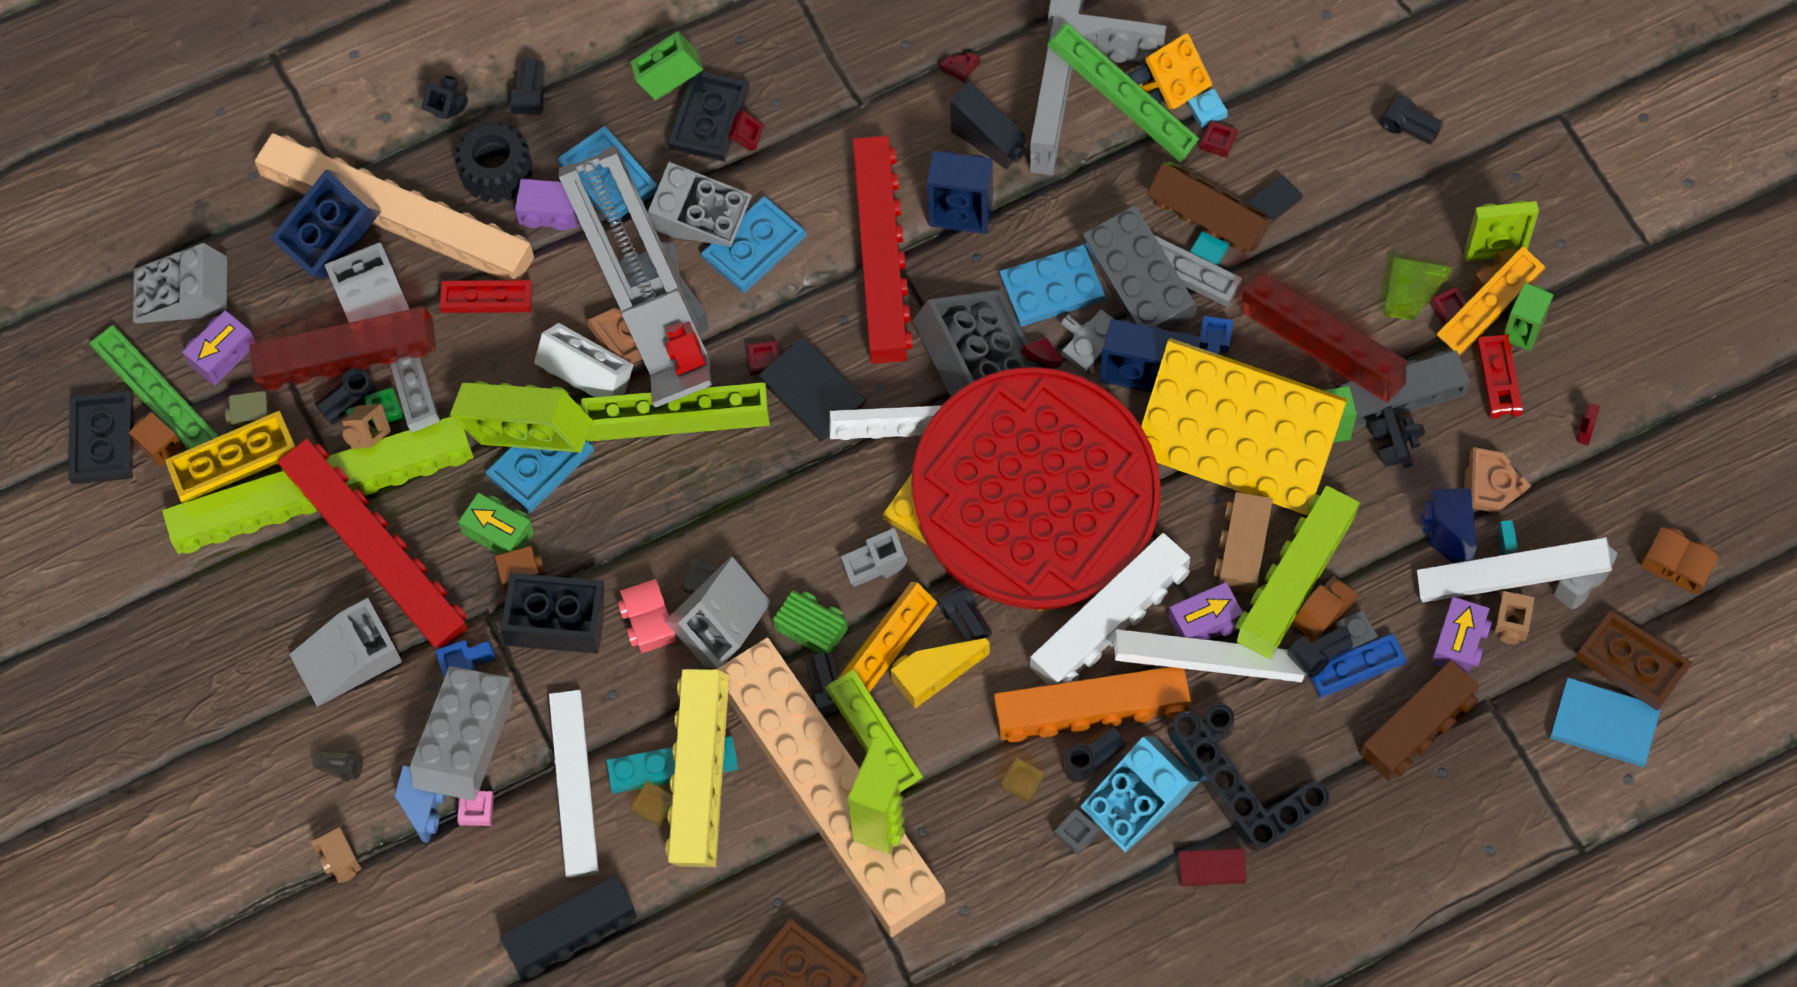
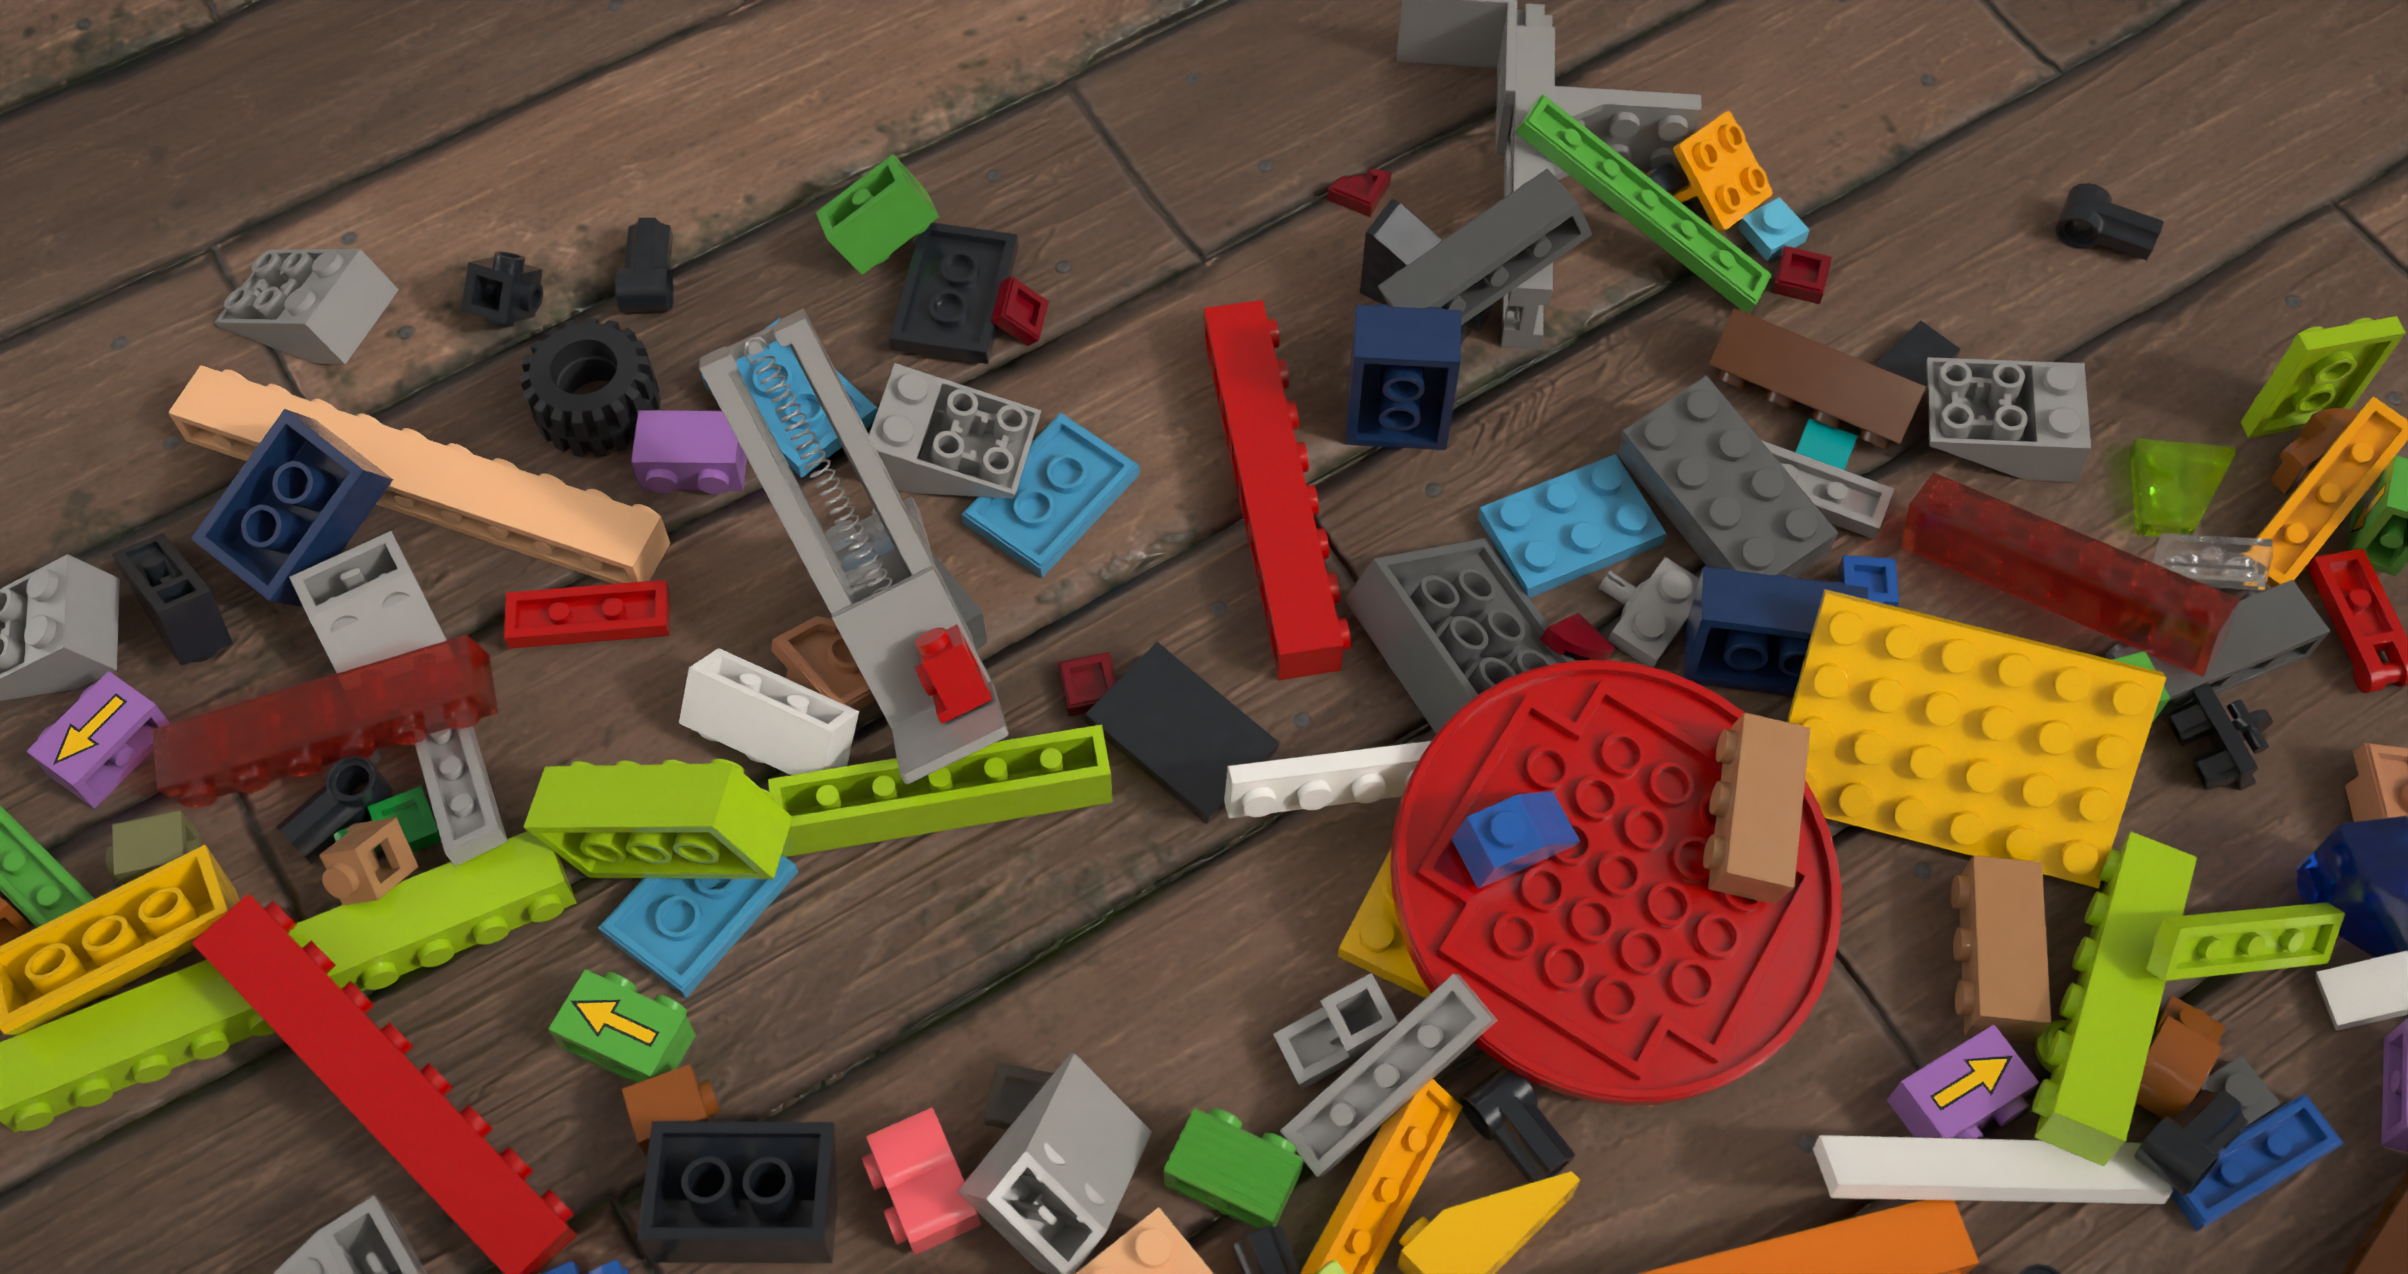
camera: 10 degrees left, 5 degrees down
(257, 270) = (174, 599): none -> black slope
(331, 95) = (309, 302): none -> light grey slope
(896, 581) = (1388, 1075): none -> light grey plate
(978, 460) = (1513, 836): none -> blue slope
(1018, 122) = (1493, 251): none -> dark grey brick
(1113, 608) = (1785, 1102): white brick -> none
(1115, 455) = (1757, 808): none -> medium nougat brick
(1317, 238) = (2011, 415): none -> light grey slope
(1372, 549) = (2244, 941): none -> lime plate
(1416, 335) = (2217, 559): none -> clear plate
(1448, 304) = (2244, 509): dark red tile -> none

